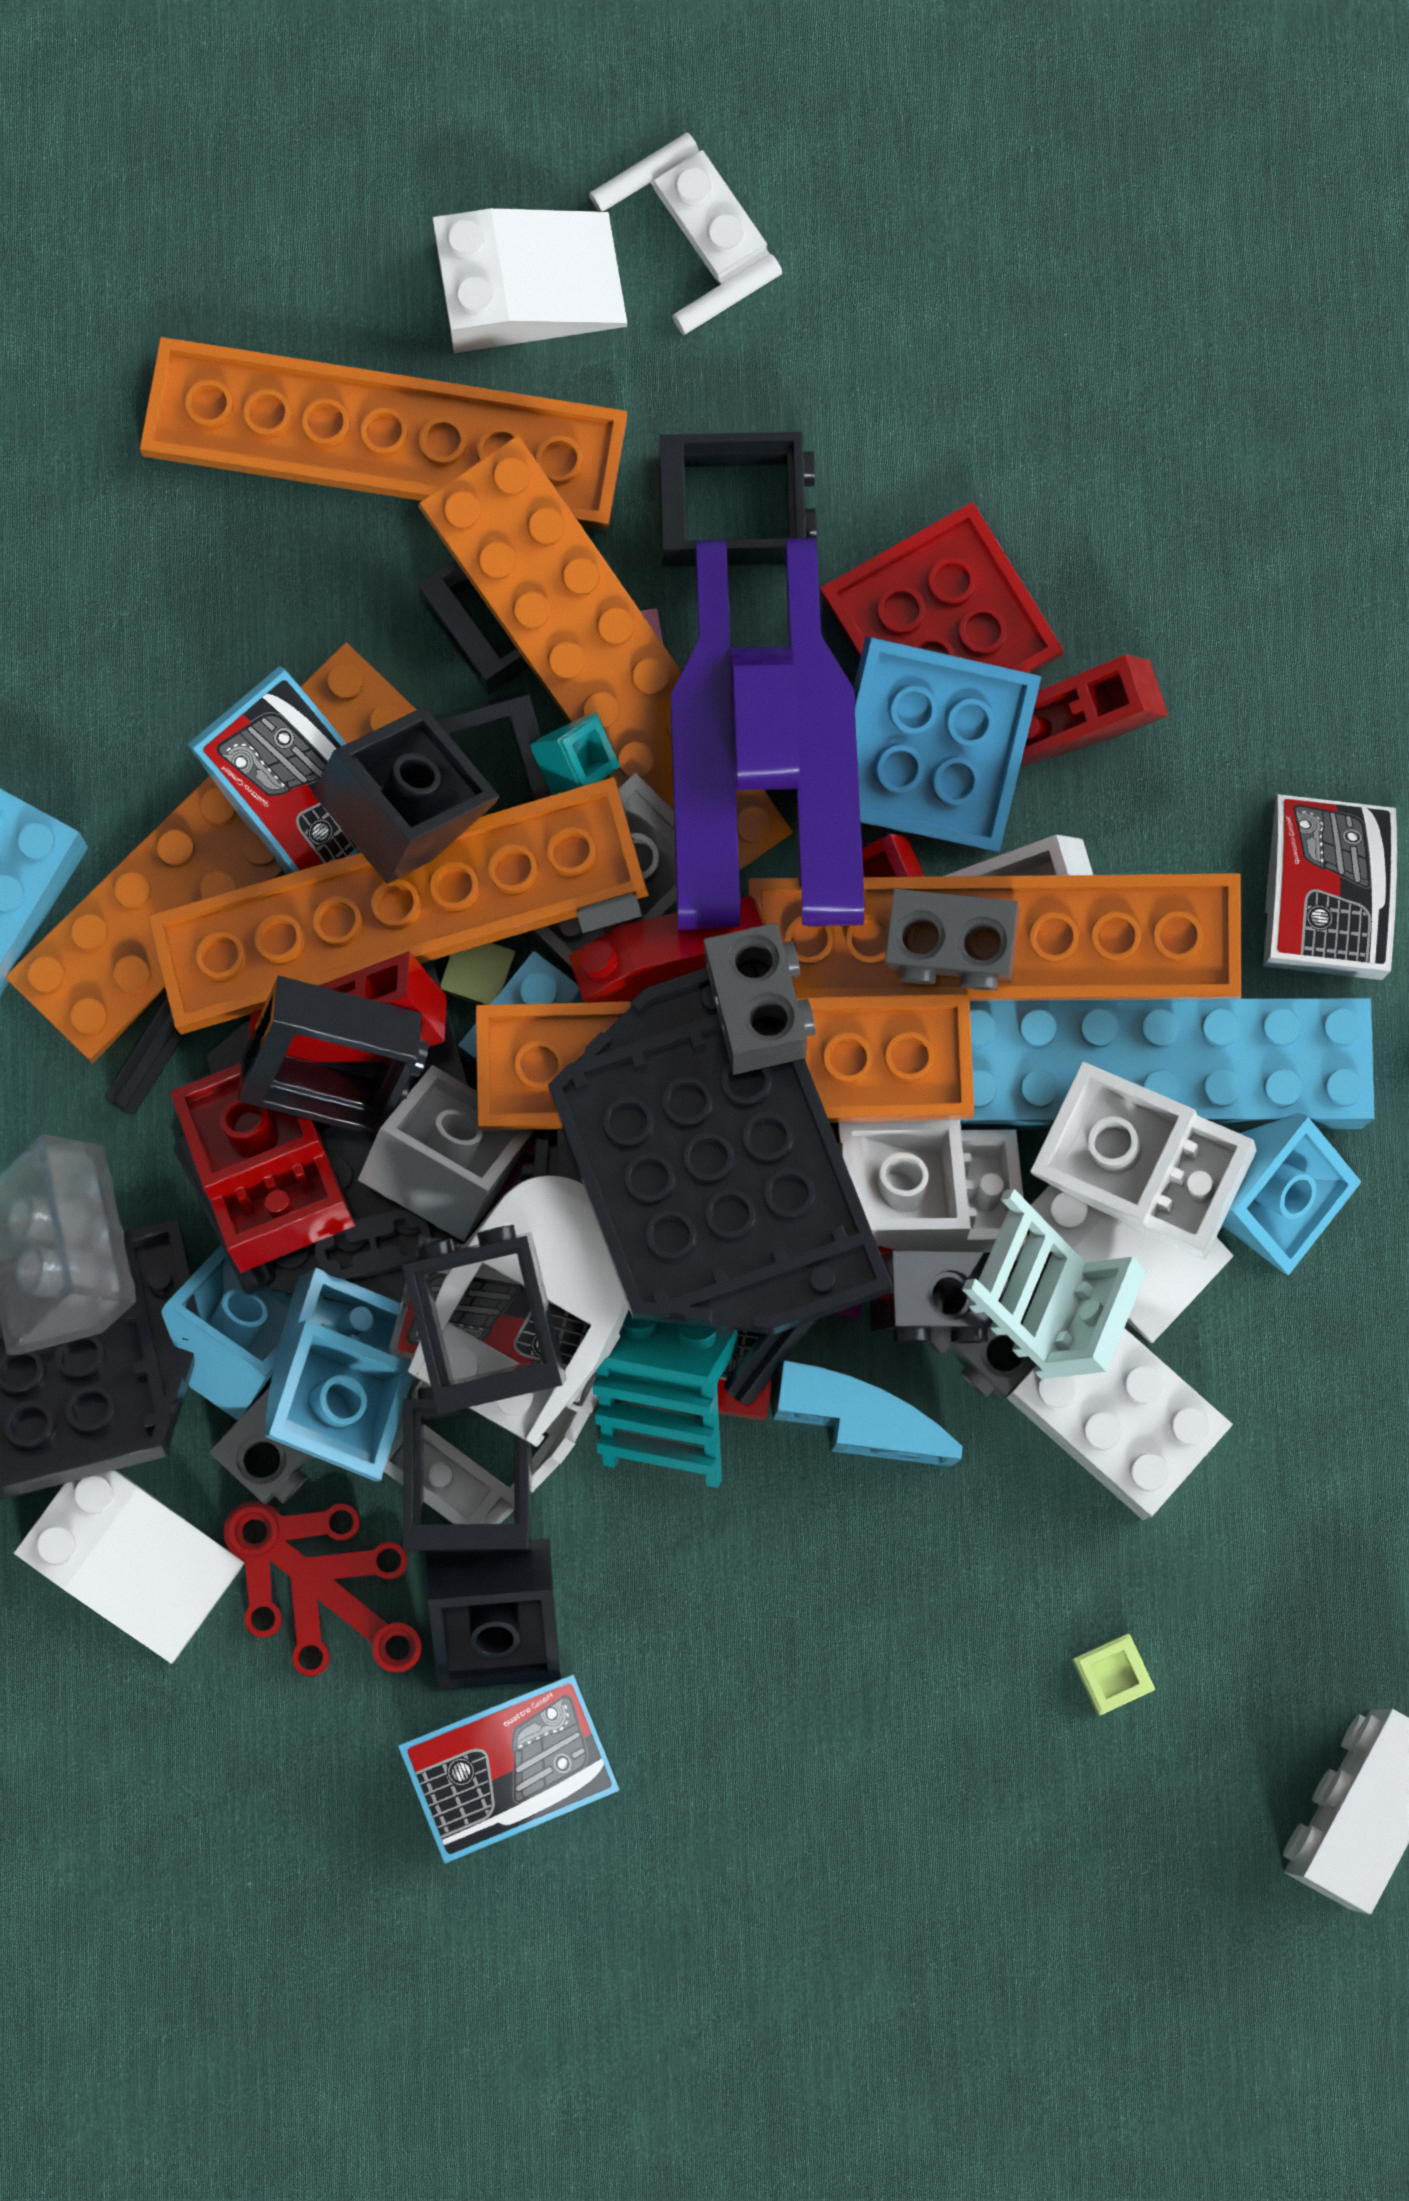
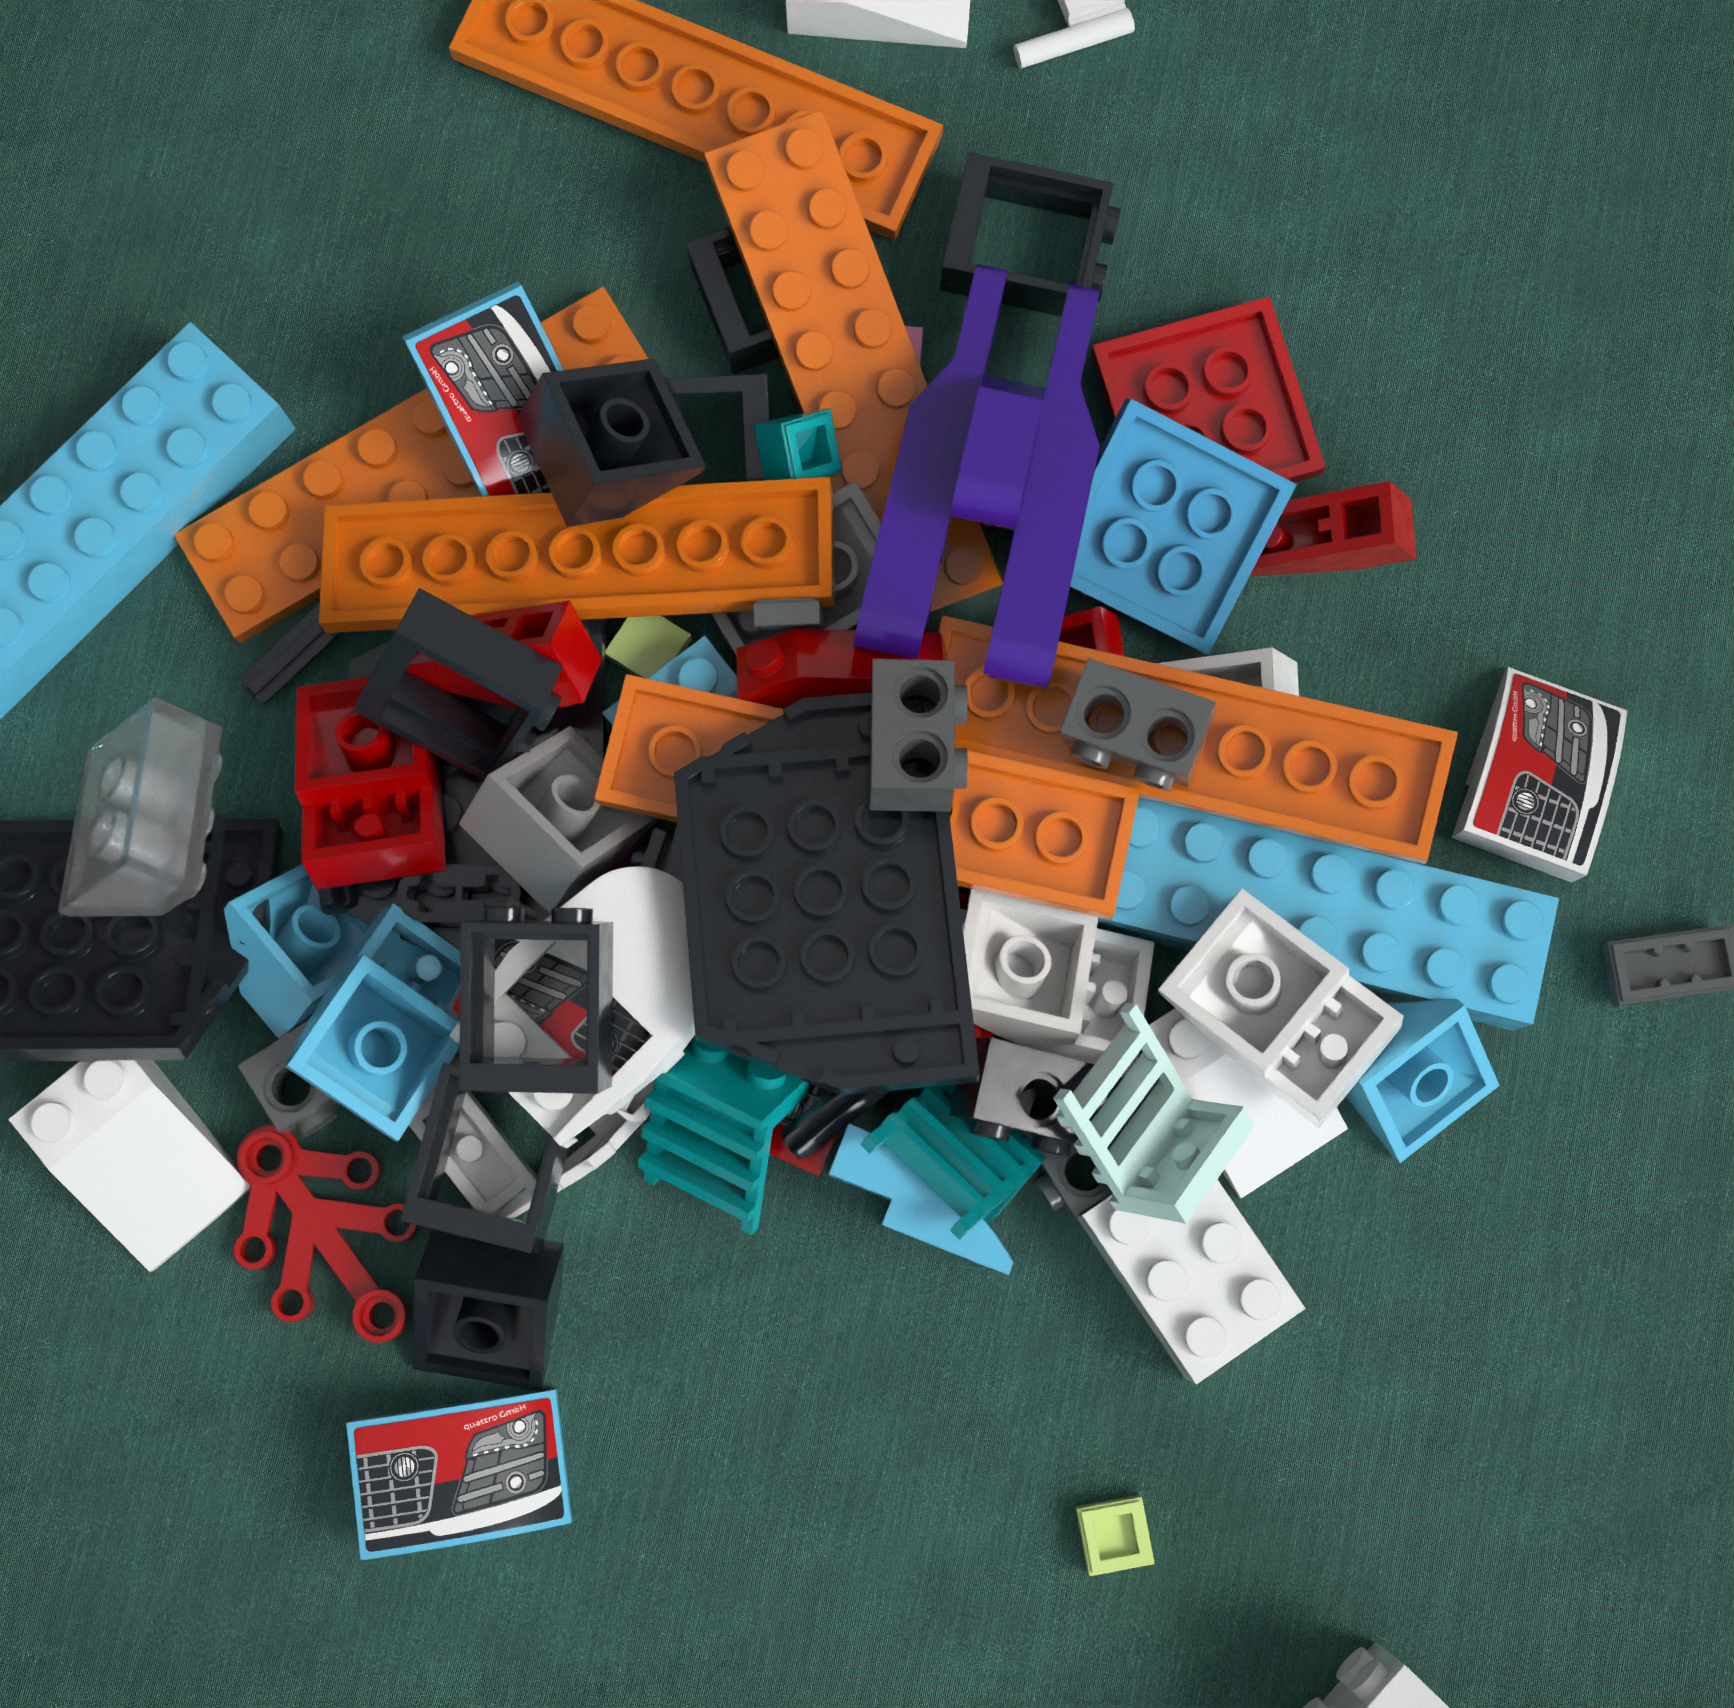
camera: 20 degrees right, 0 degrees up
(898, 1375) = (964, 1169): none -> teal plate

